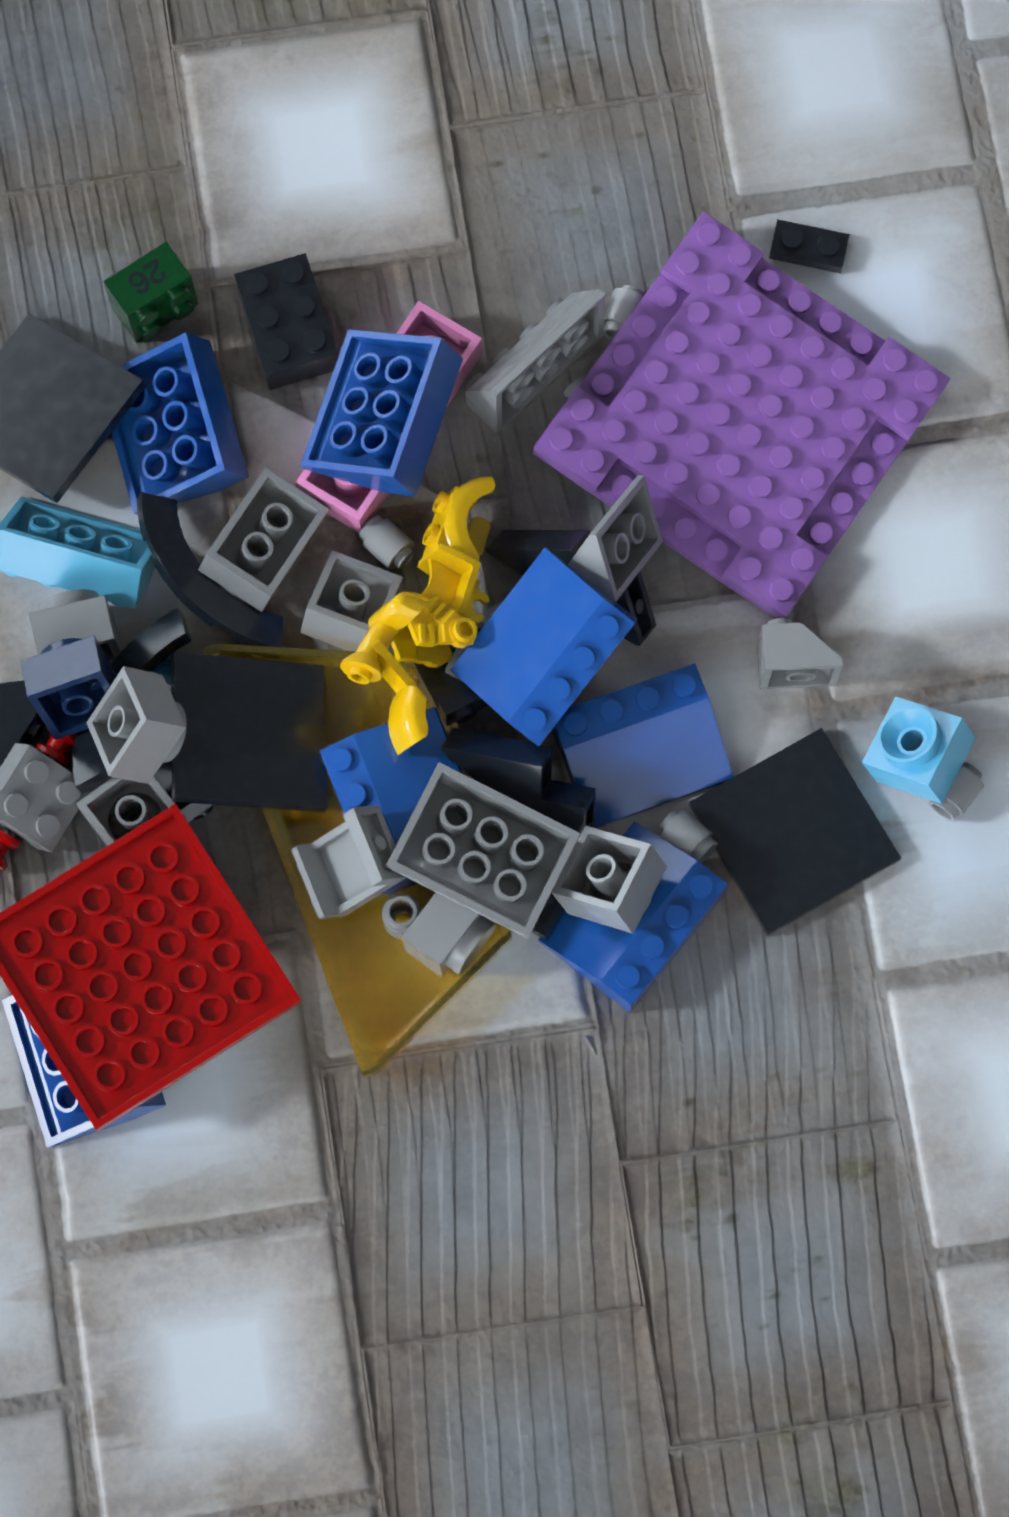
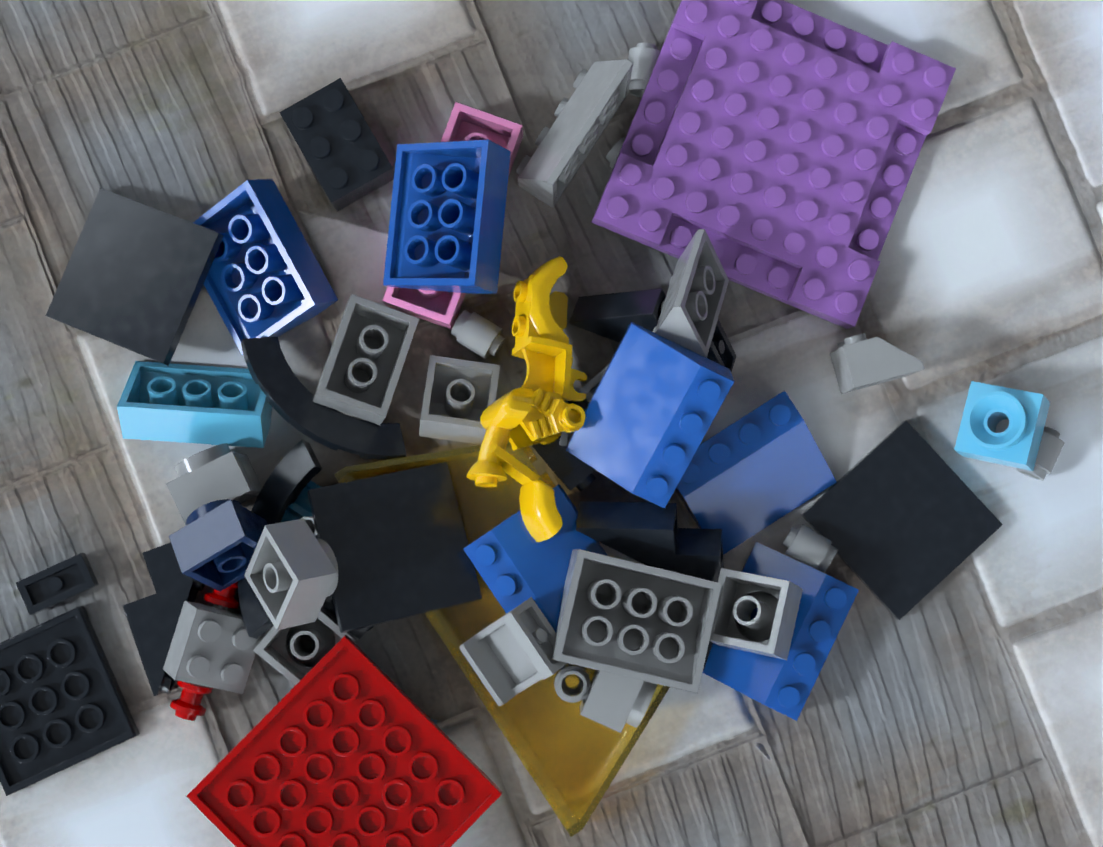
camera: 10 degrees left, 10 degrees up
(151, 293) = (207, 146): dark green brick -> none

